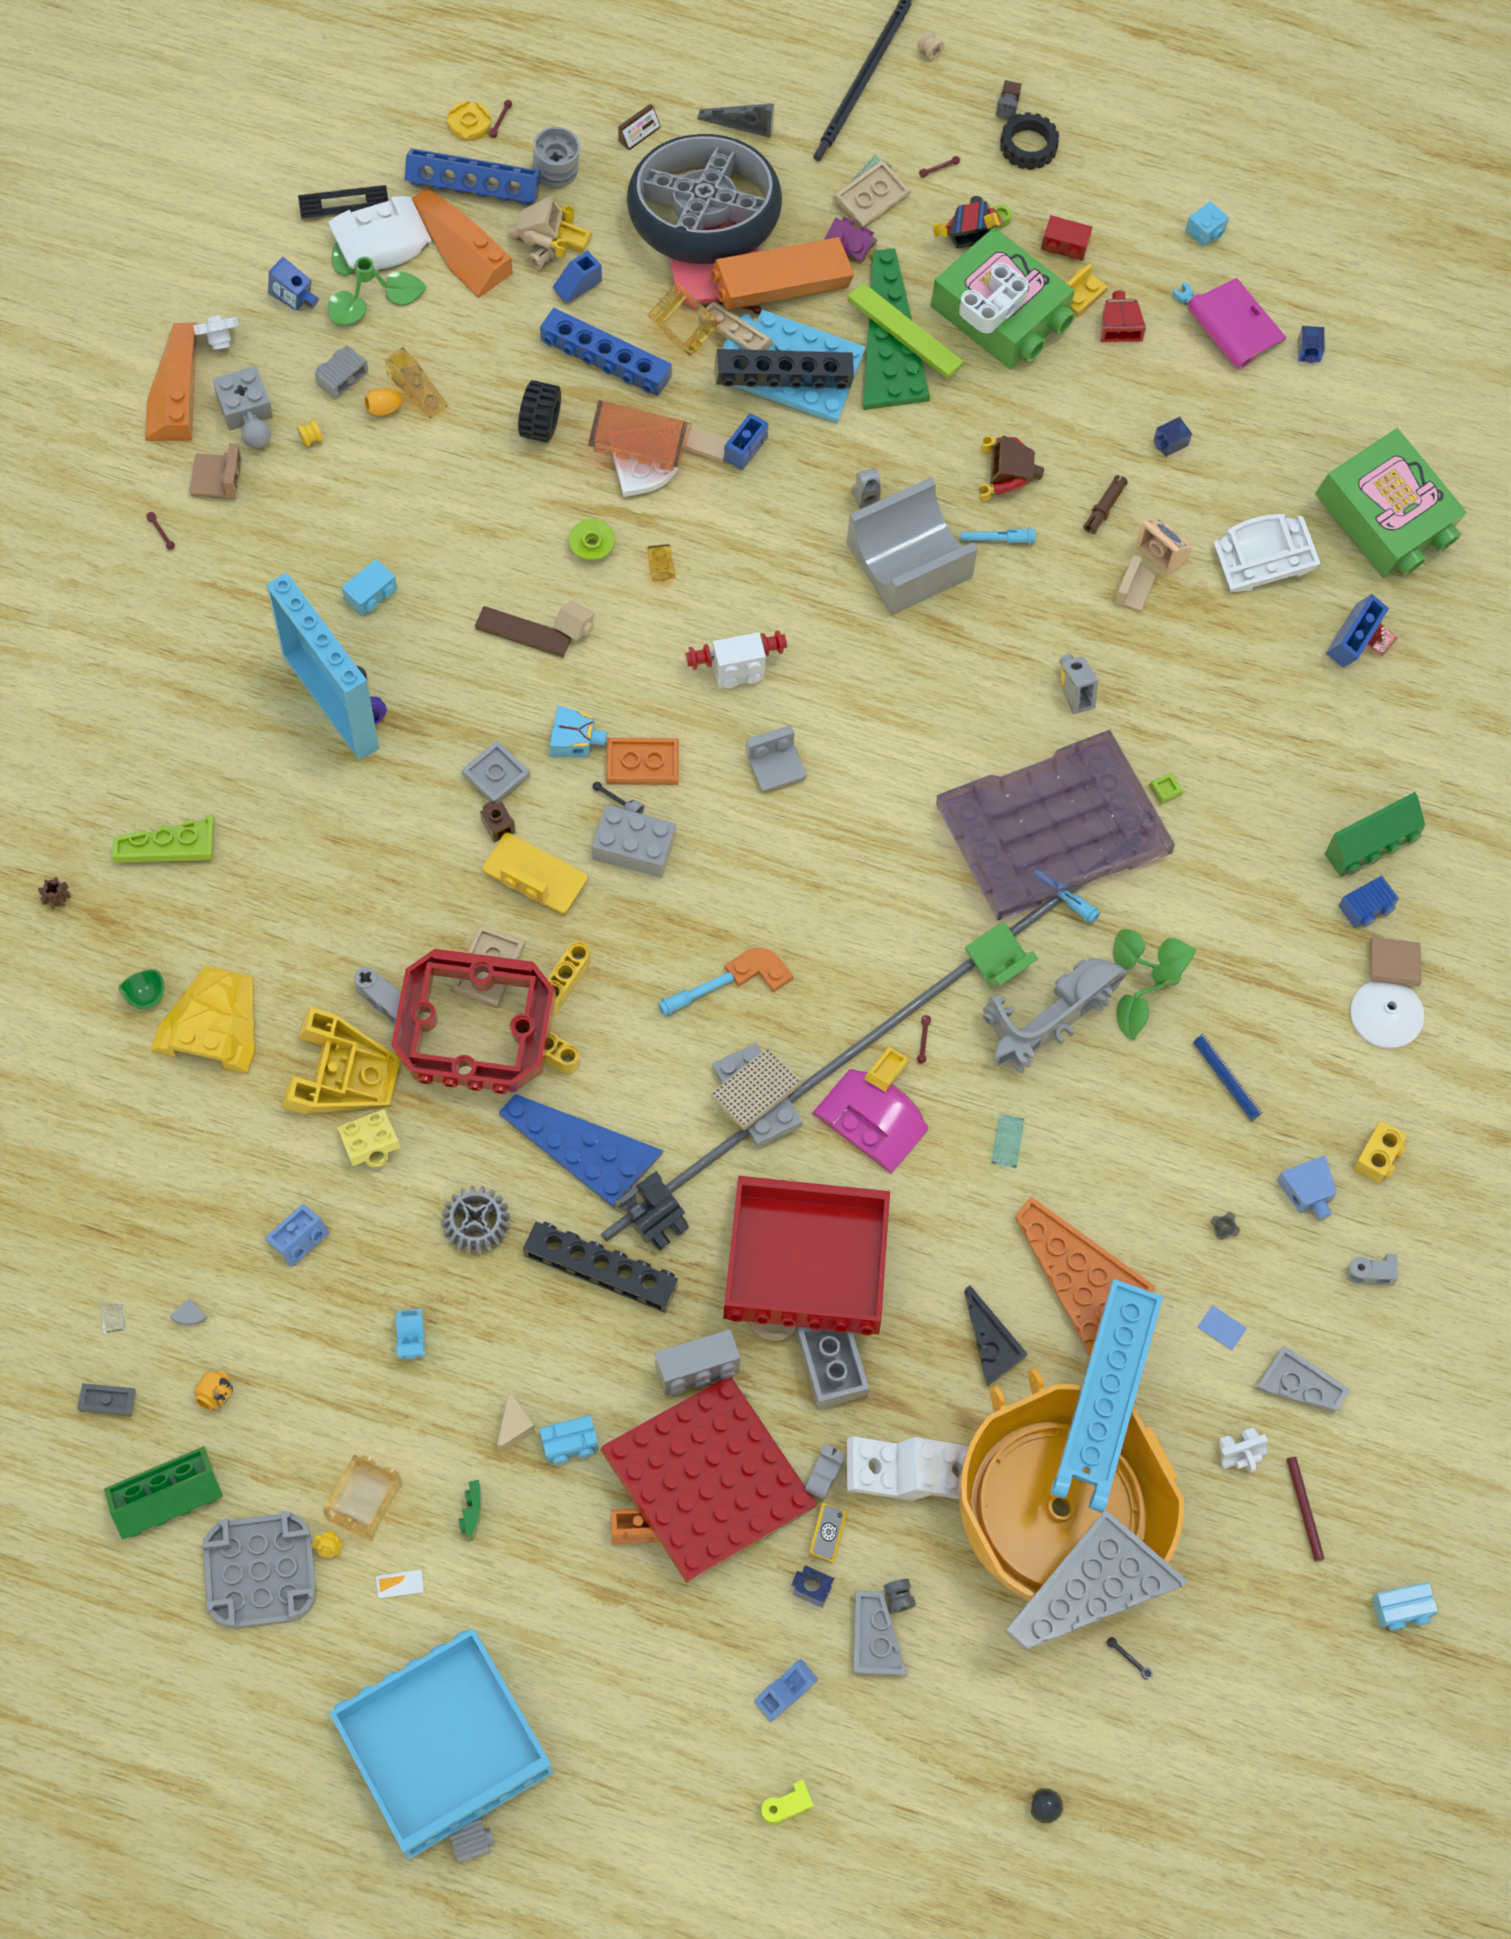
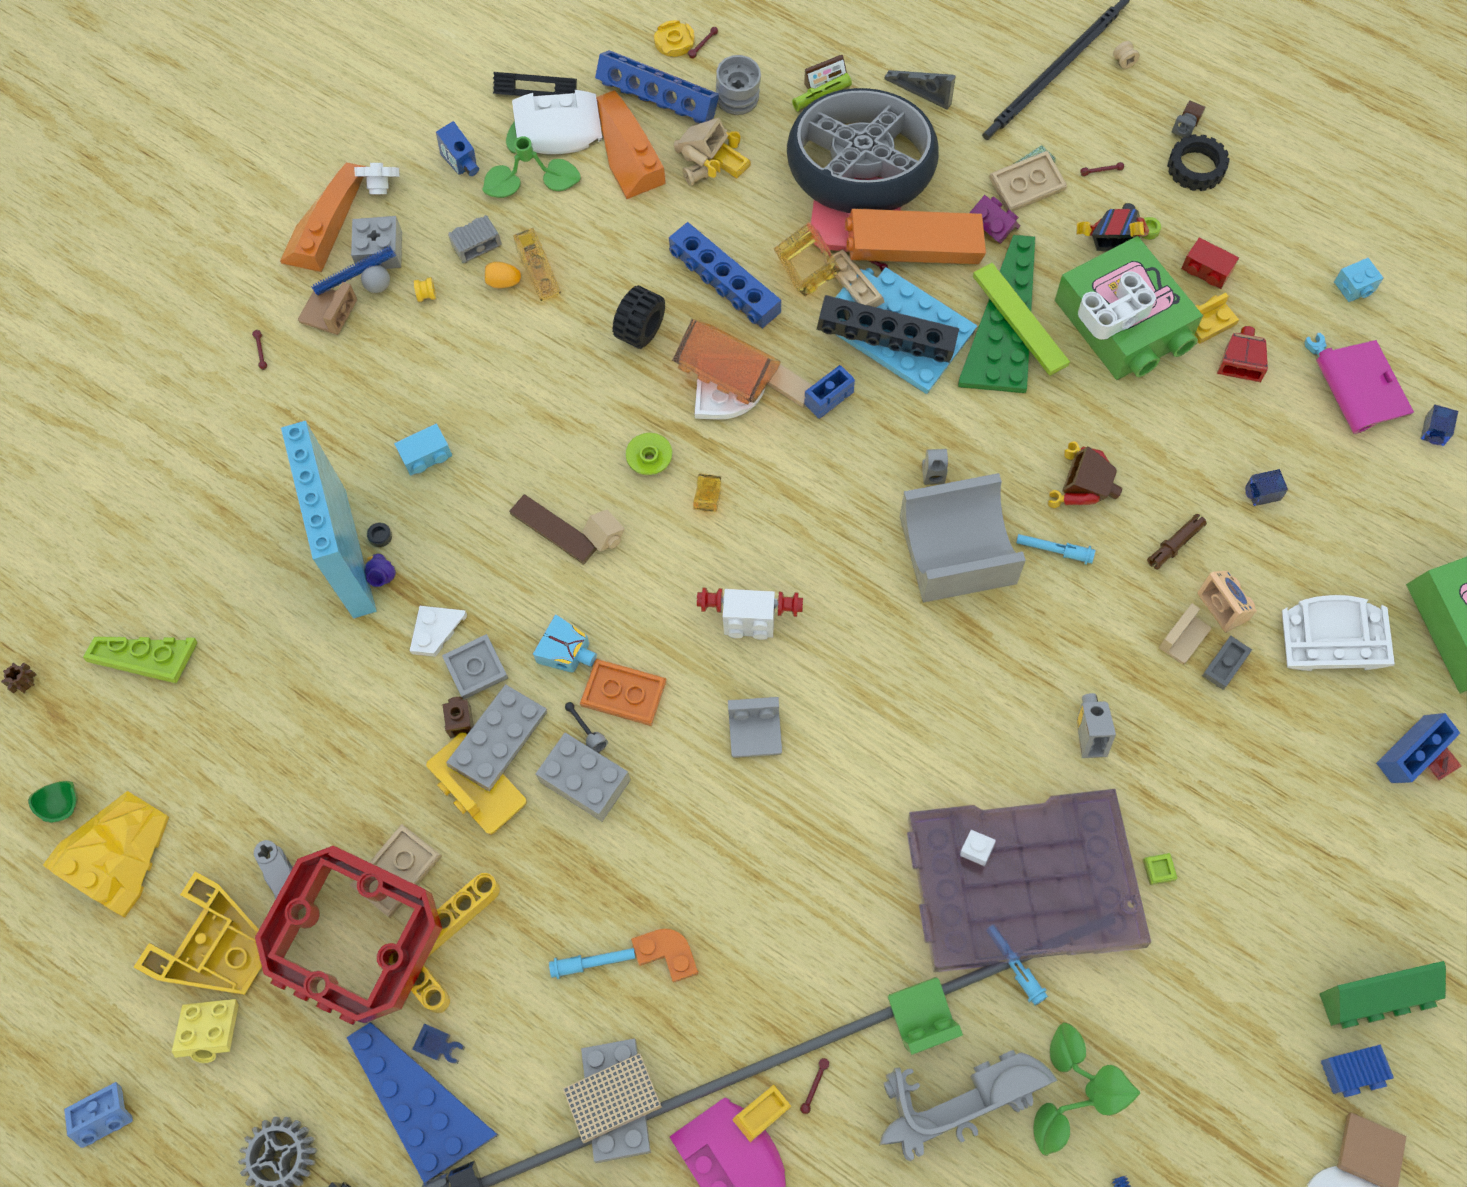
camera: 25 degrees right, 0 degrees up
(233, 429) = (354, 271): none -> blue axle
(442, 749) = (434, 628): none -> white wing
(540, 828) = (497, 737): none -> light grey plate
(578, 277) = (721, 199): blue slope -> none
(579, 1095) = (434, 1043): none -> clear blue plate
(623, 160) = (812, 94): none -> lime pin
(1006, 807) = (977, 847): none -> white plate
(1177, 600) = (1227, 662): none -> dark grey plate

